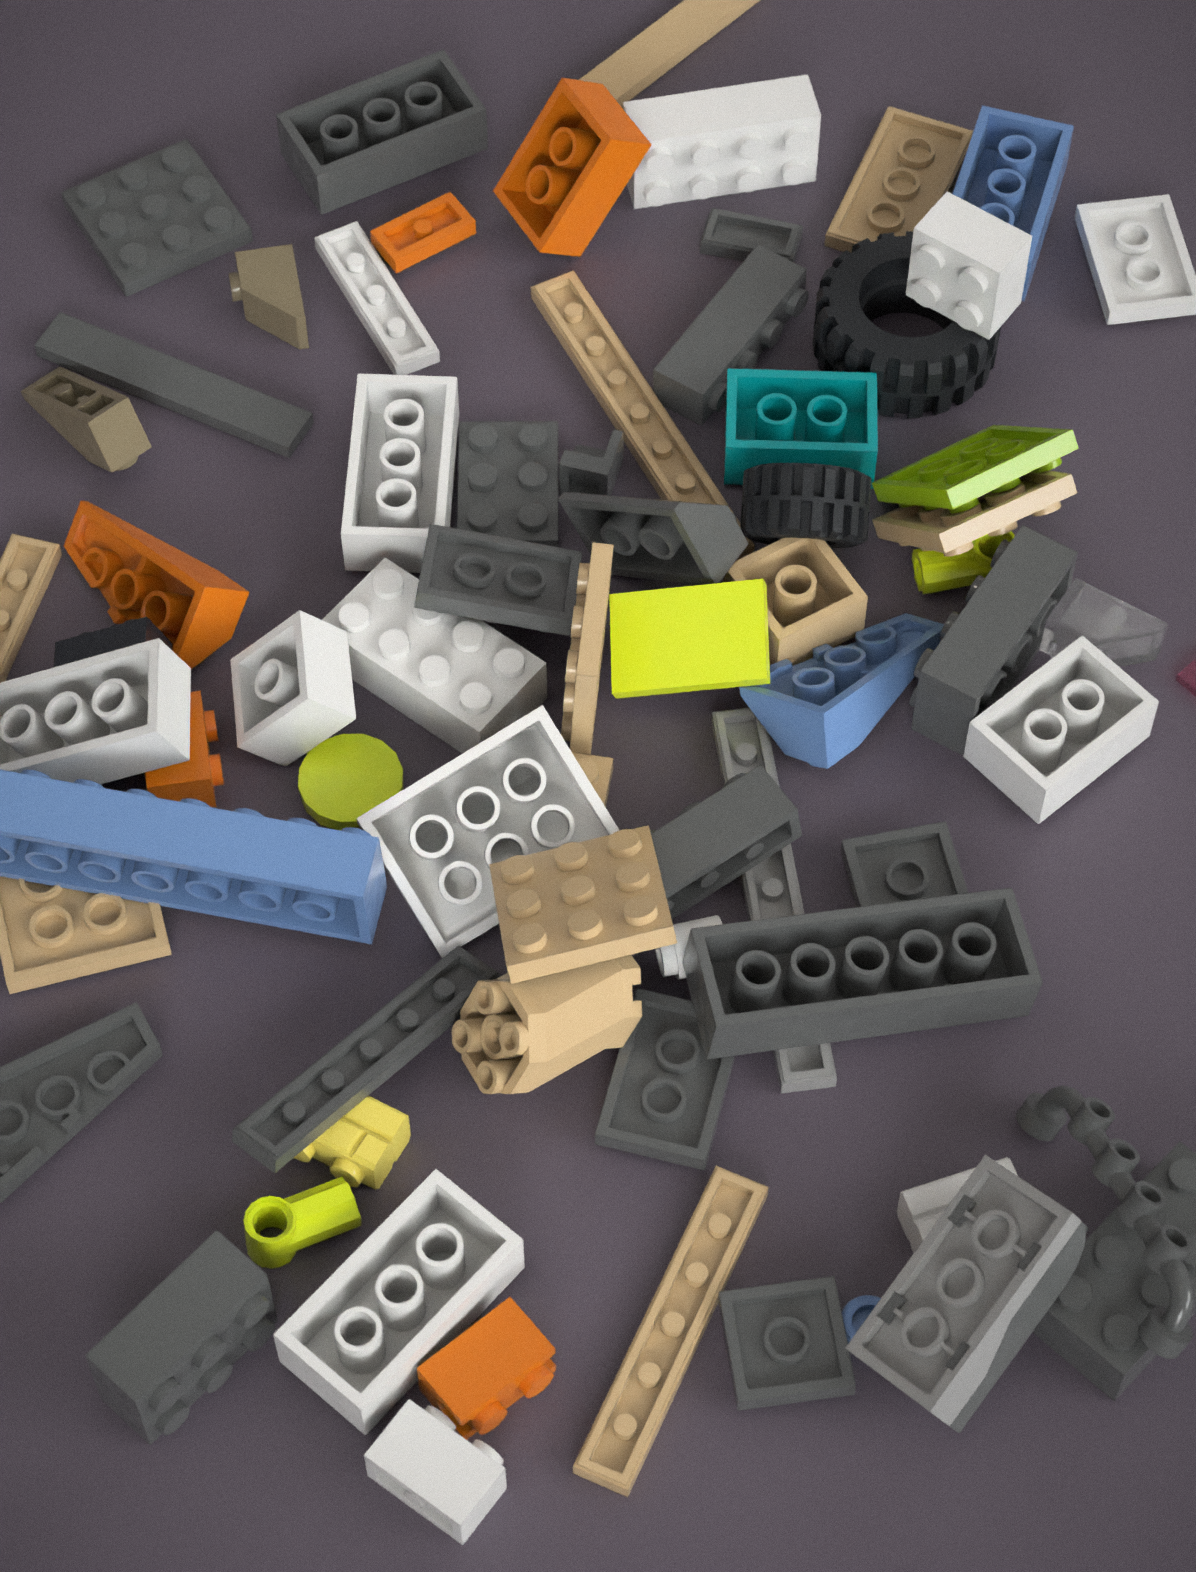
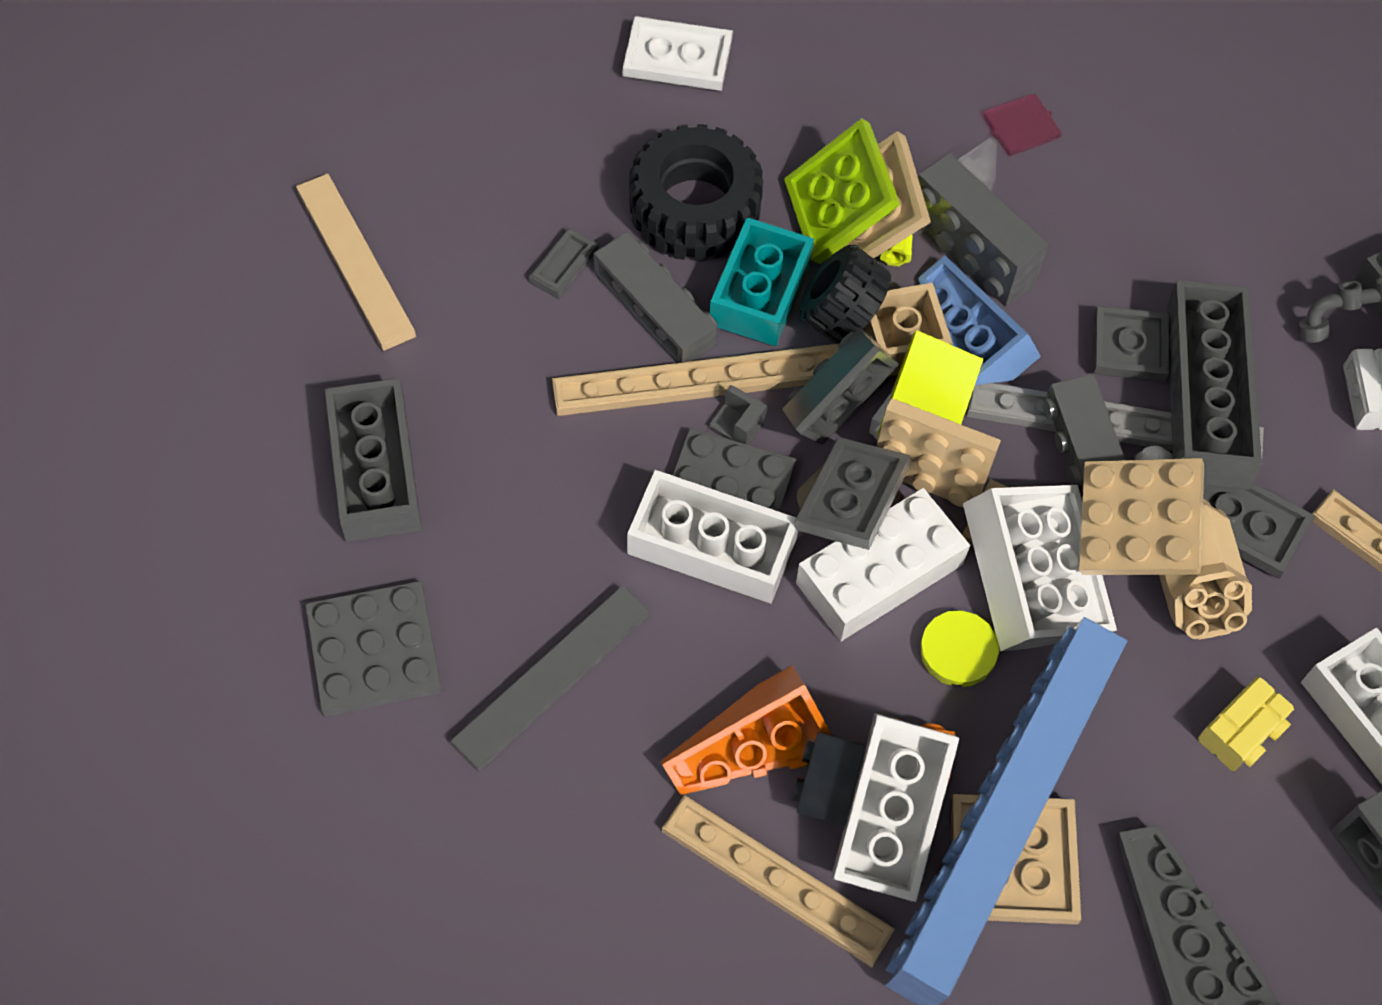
camera: 75 degrees left, 5 degrees up
(90, 418) = (568, 744): dark tan slope -> none
(271, 292) = (498, 580): dark tan slope -> none
(292, 689) = (896, 656): white brick -> none
(303, 1218) = (1310, 766): neon yellow piece -> none
(360, 1061) = (1212, 690): dark grey tile -> none
(377, 299) = (521, 515): white tile -> none
(423, 232) = (475, 464): orange plate -> none
(571, 167) = (489, 338): orange brick -> none
(725, 141) = (488, 245): white brick -> none
(899, 178) = (555, 162): tan tile -> none
(968, 265) = (712, 122): white brick -> none
(1016, 172) = (605, 100): medium blue brick -> none
(1060, 729) = (1059, 213): white brick -> none

